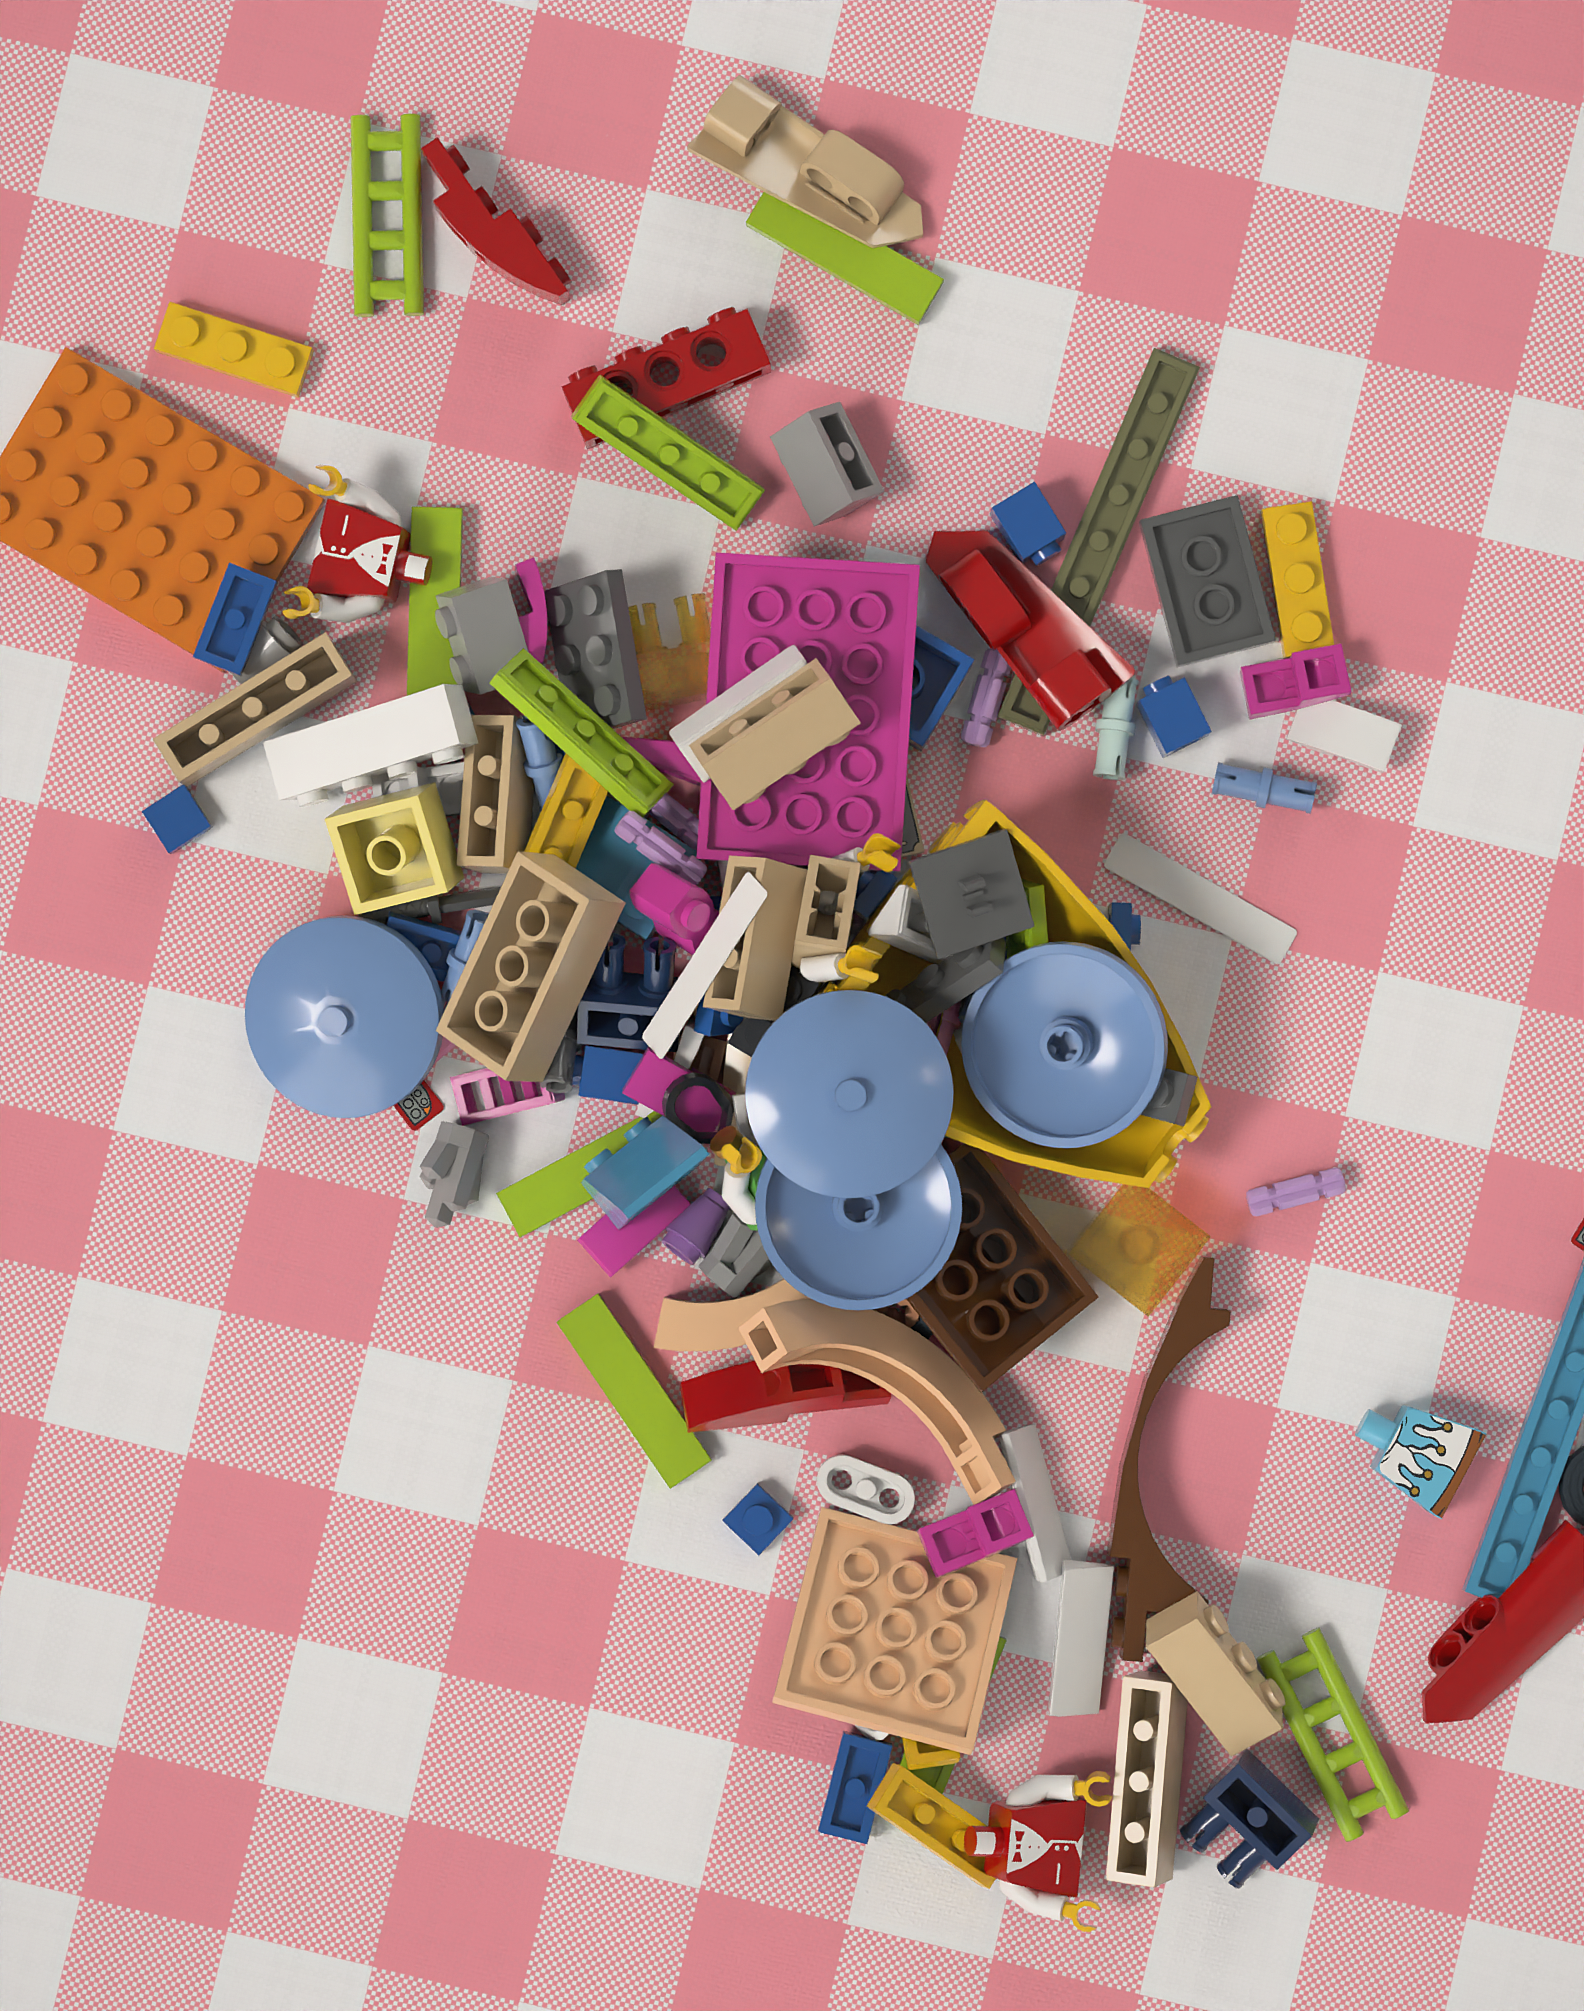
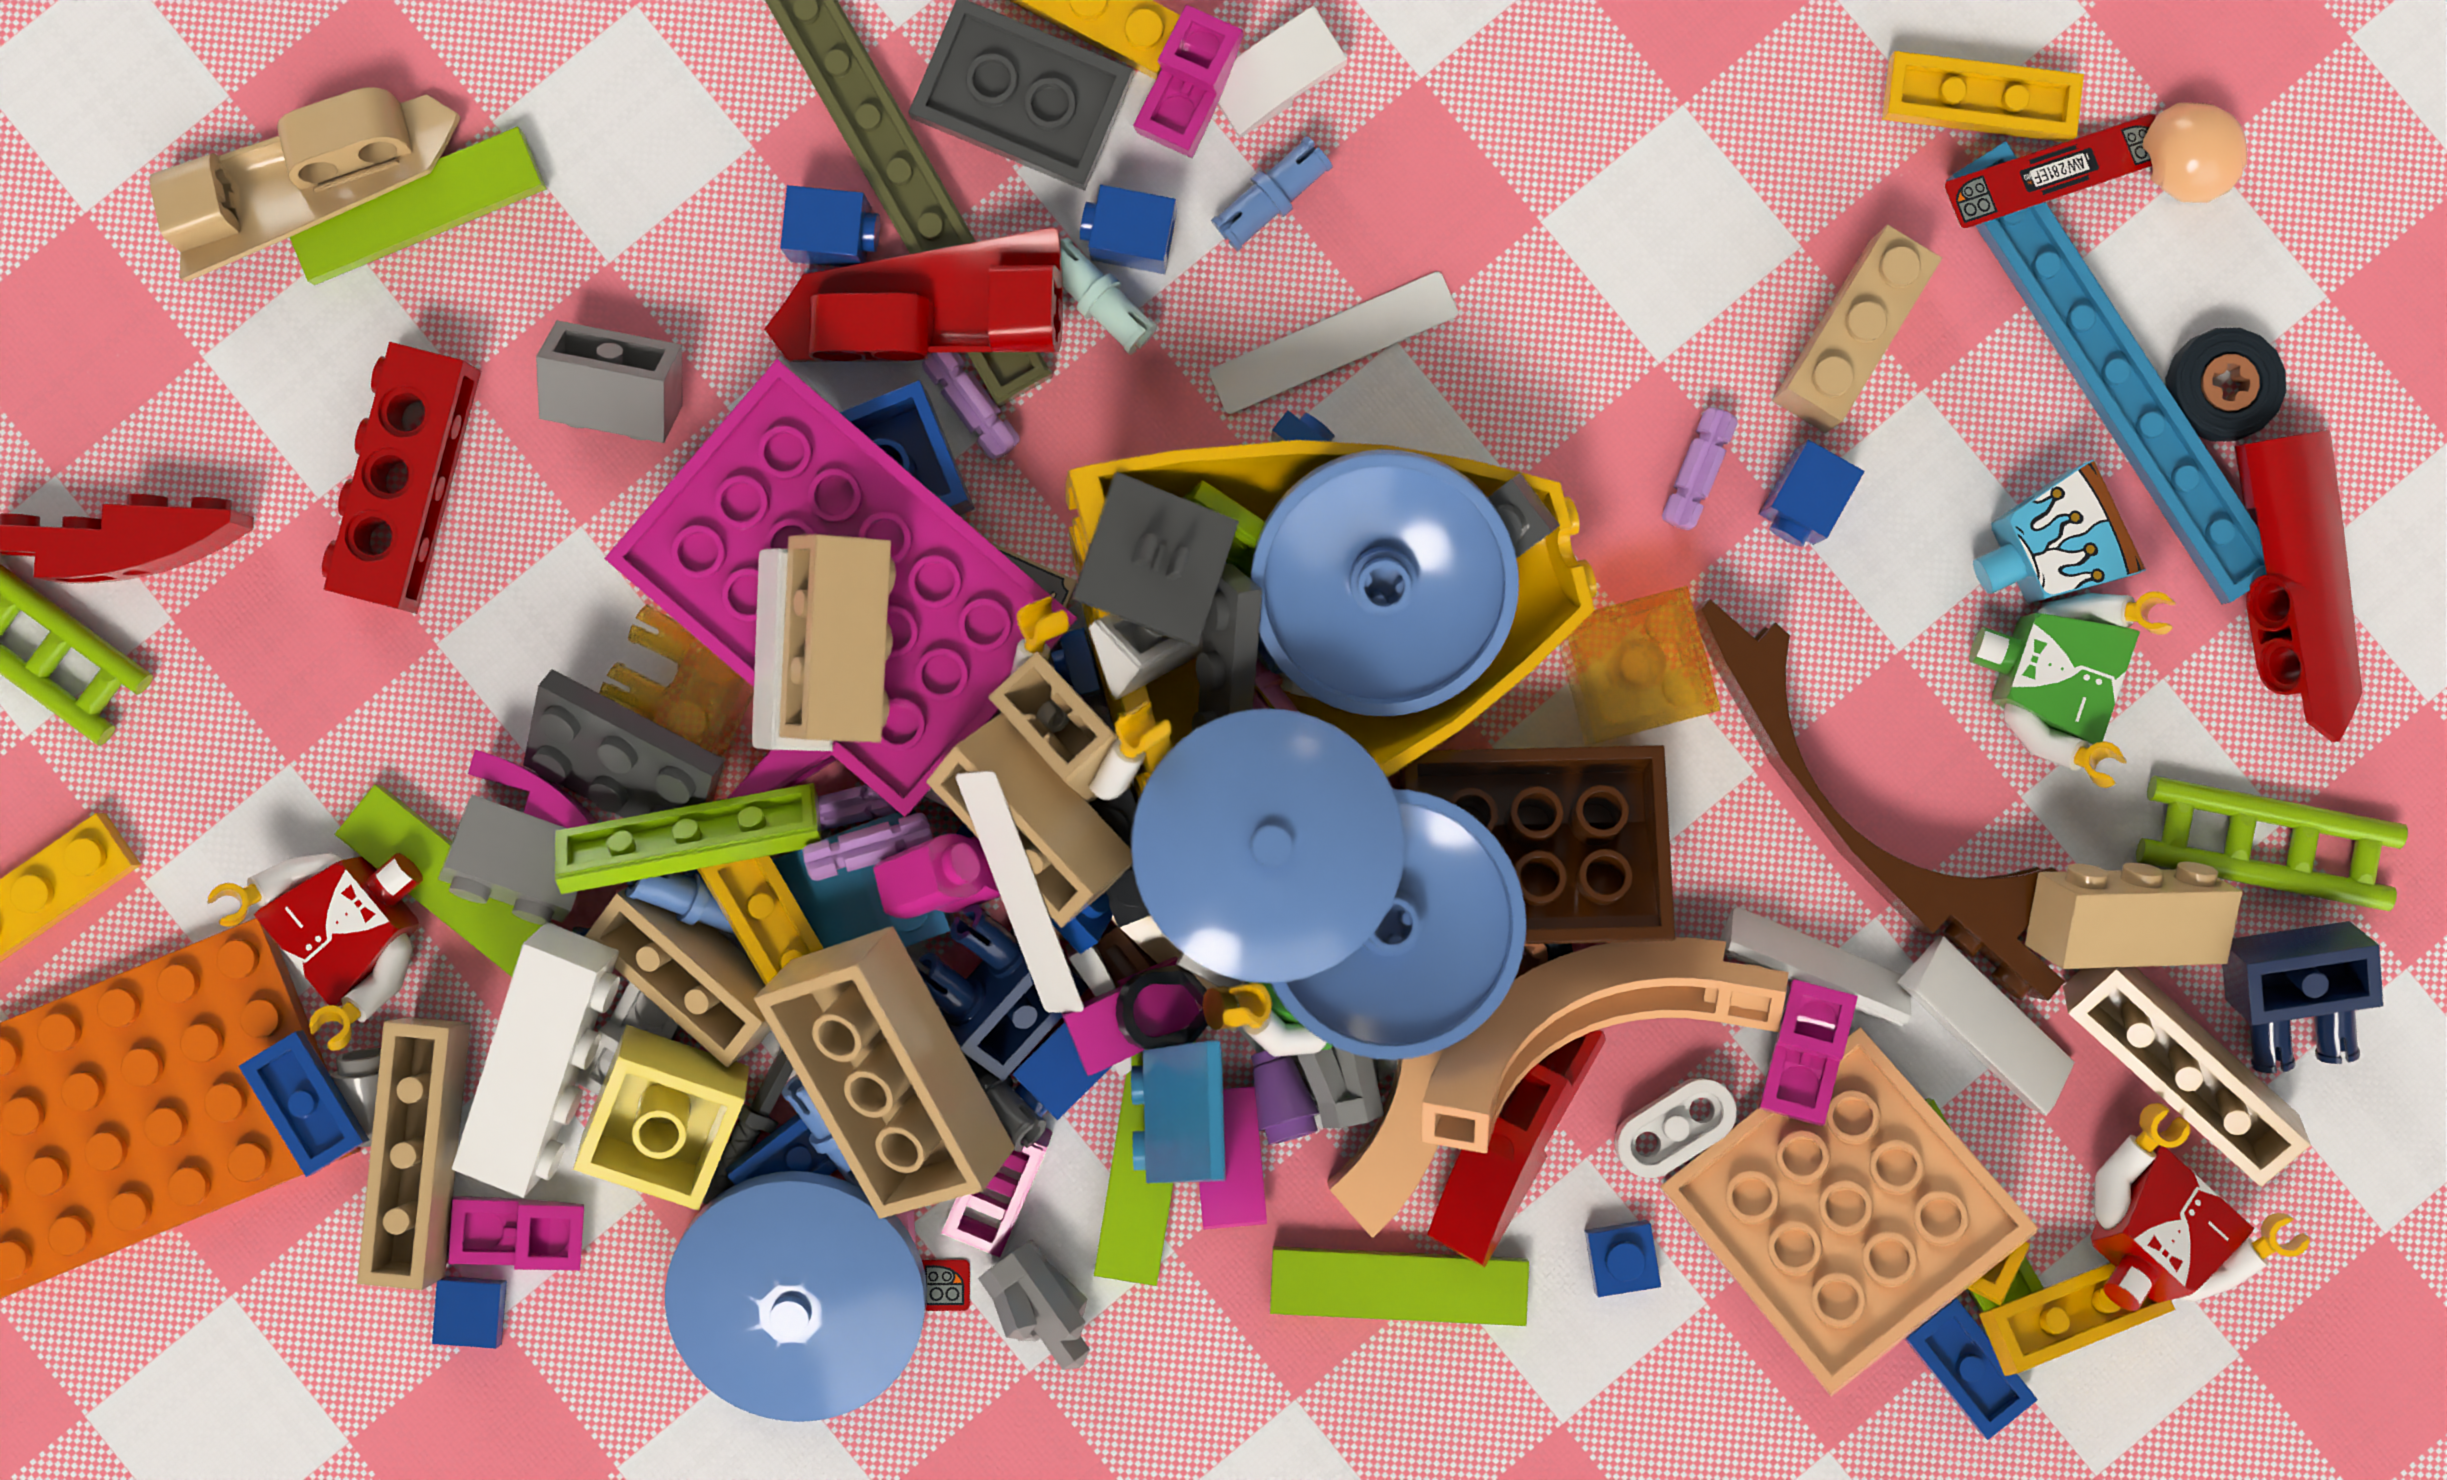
camera: 55 degrees left, 0 degrees up
(248, 811) = (516, 1233): none -> dark pink slope
(667, 452) = (473, 533): lime tile -> none
(1330, 1273) = (1810, 495): none -> blue brick
(1339, 1520) = (2066, 674): none -> torso
(1458, 1223) = (1857, 329): none -> tan brick

